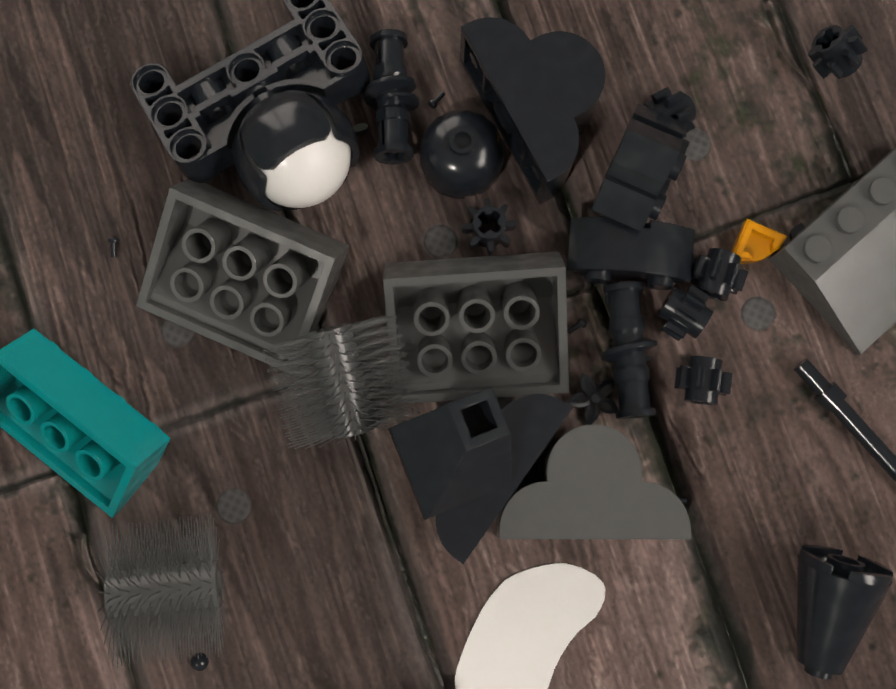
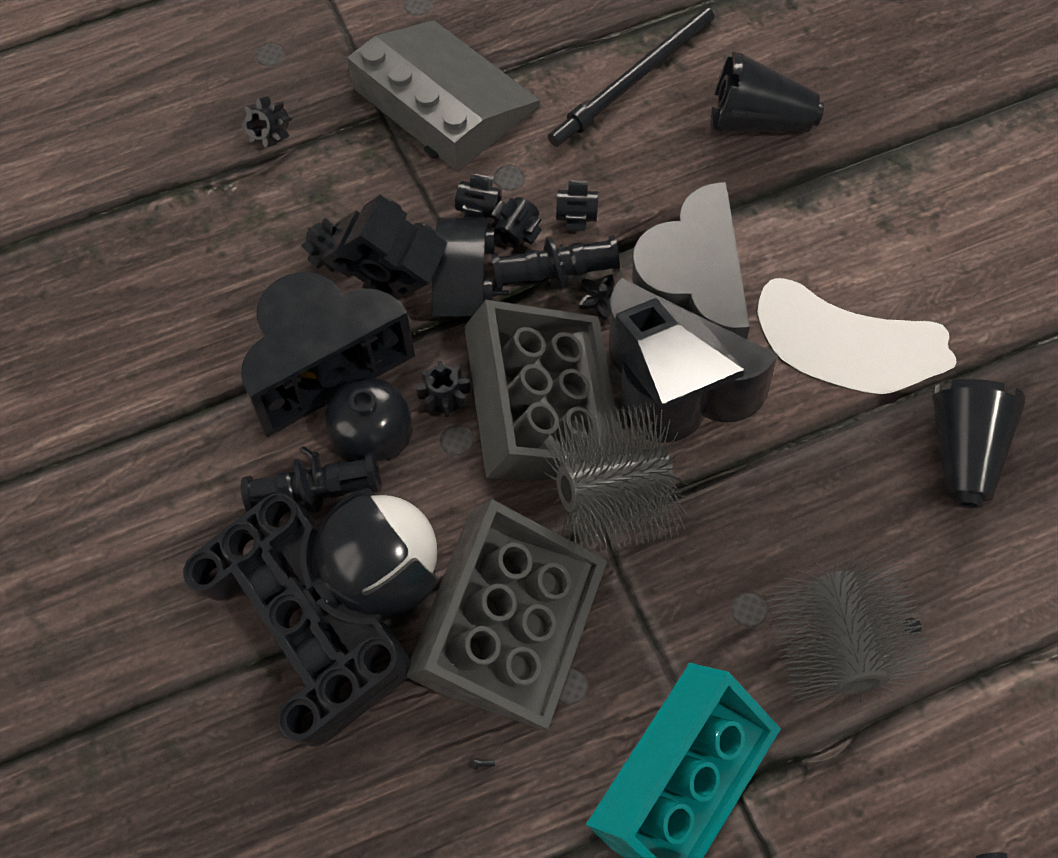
camera: 90 degrees left, 20 degrees down
(756, 242) = (442, 179): light orange tile -> none

